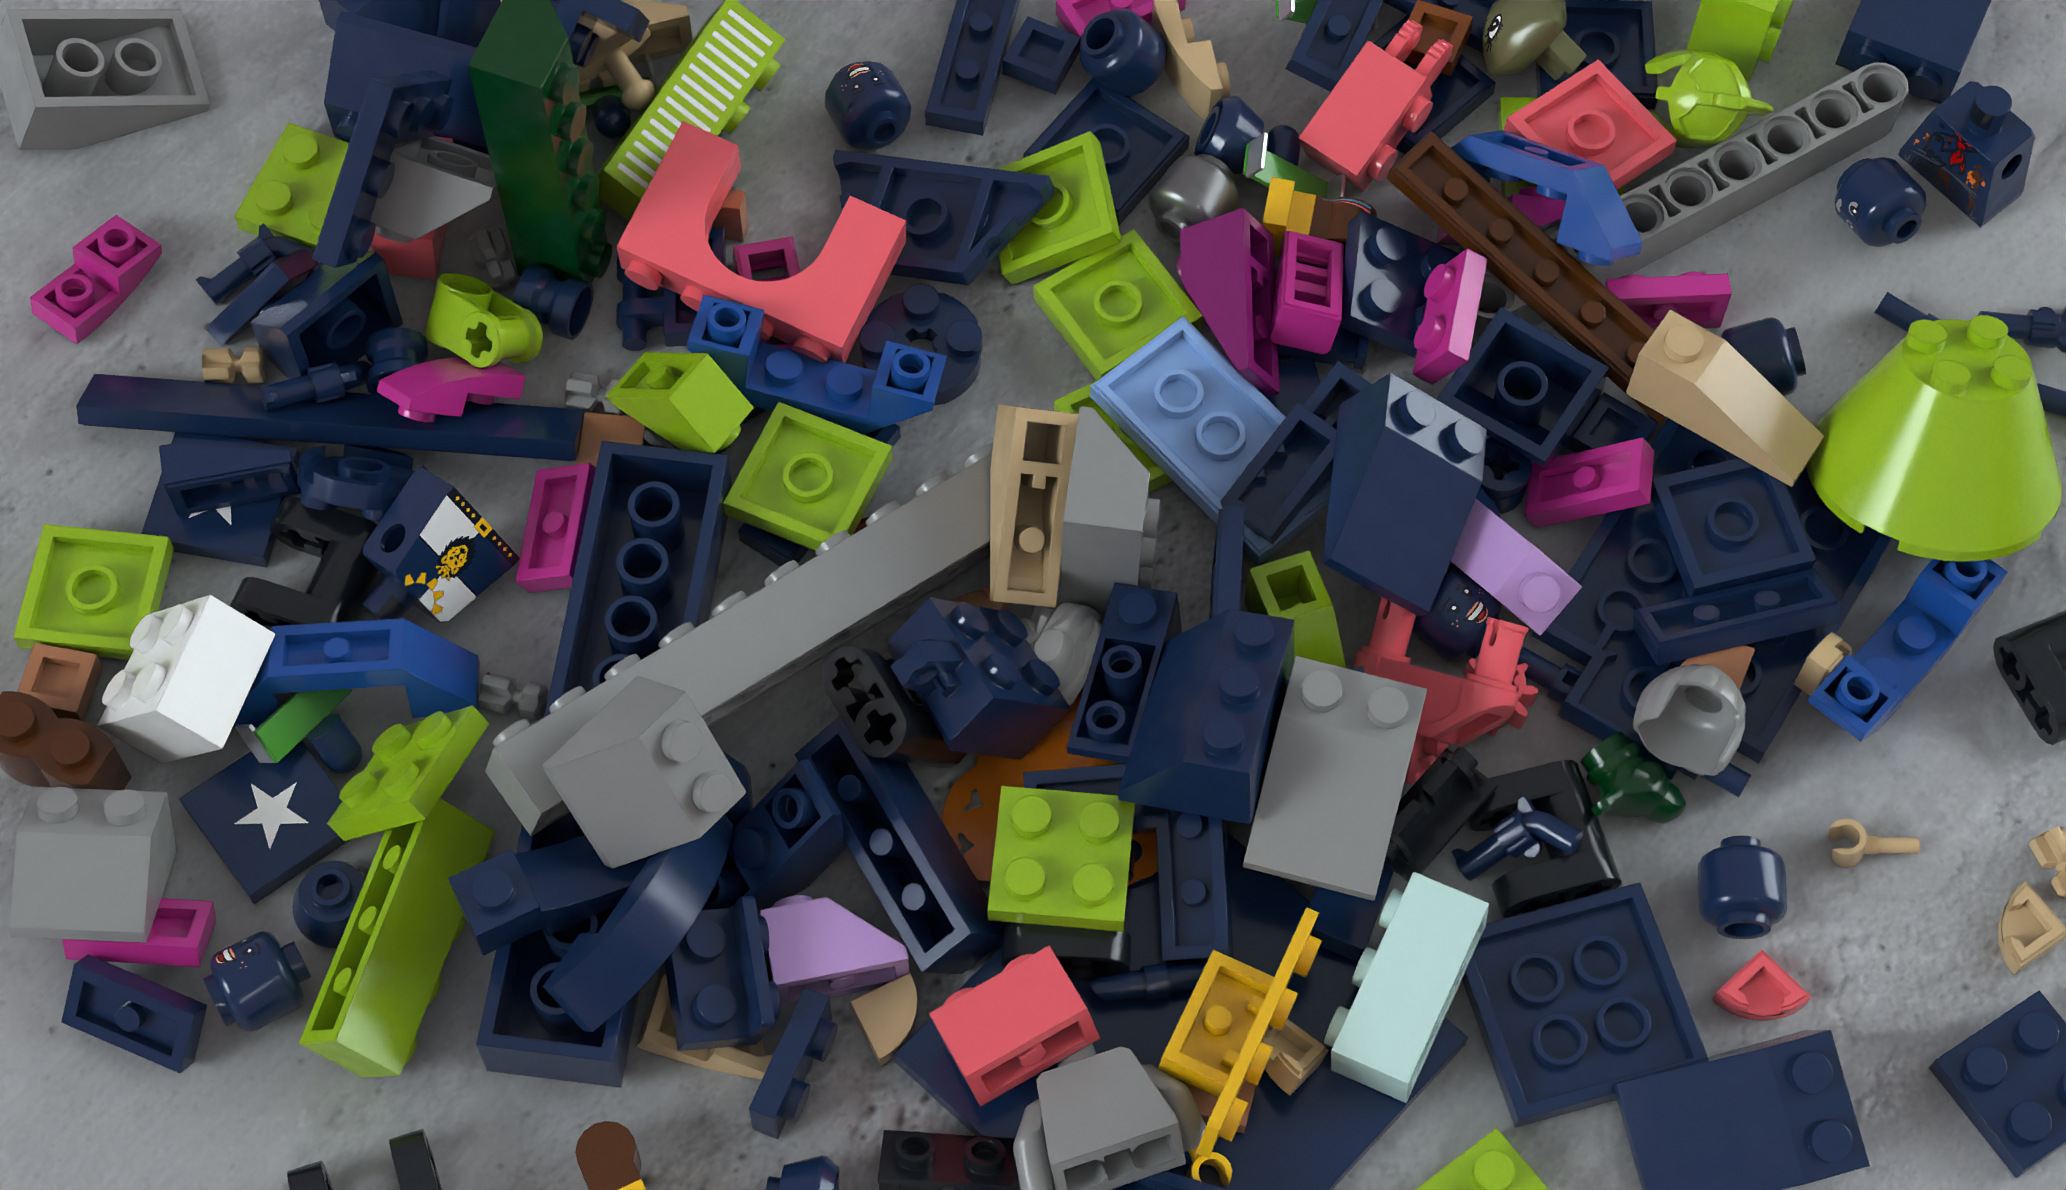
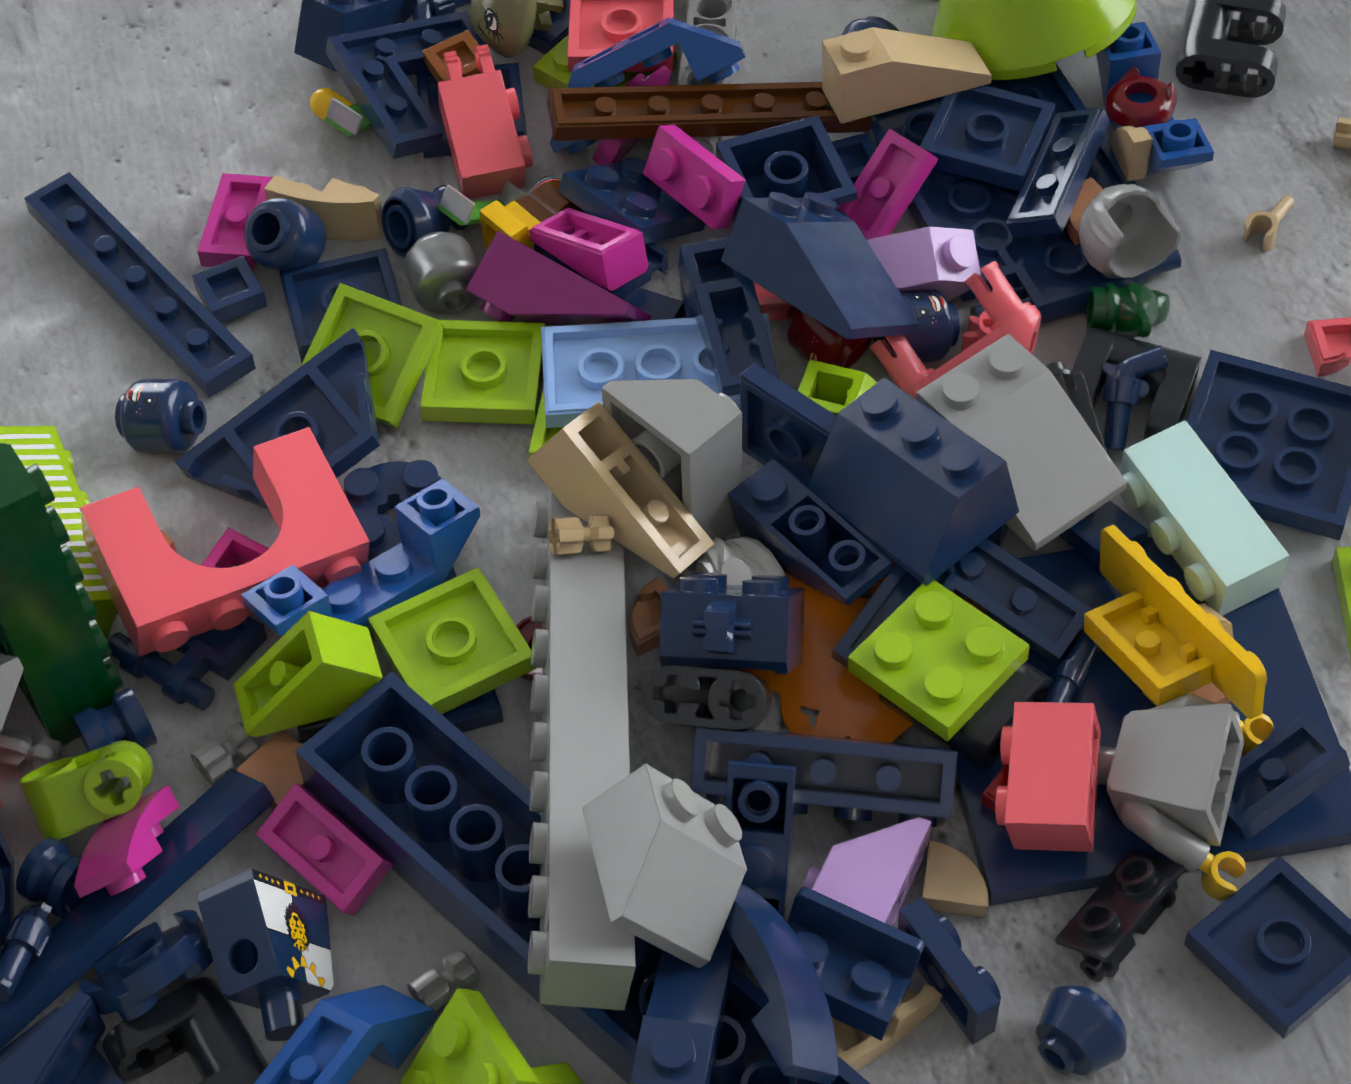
camera: 50 degrees left, 10 degrees down
(952, 491) = (568, 535): none -> tan piece
(1692, 295) = (786, 60): dark pink plate -> none
(1742, 888) = (1256, 299): dark blue head -> none
(1900, 655) = (1135, 114): none -> dark red piece

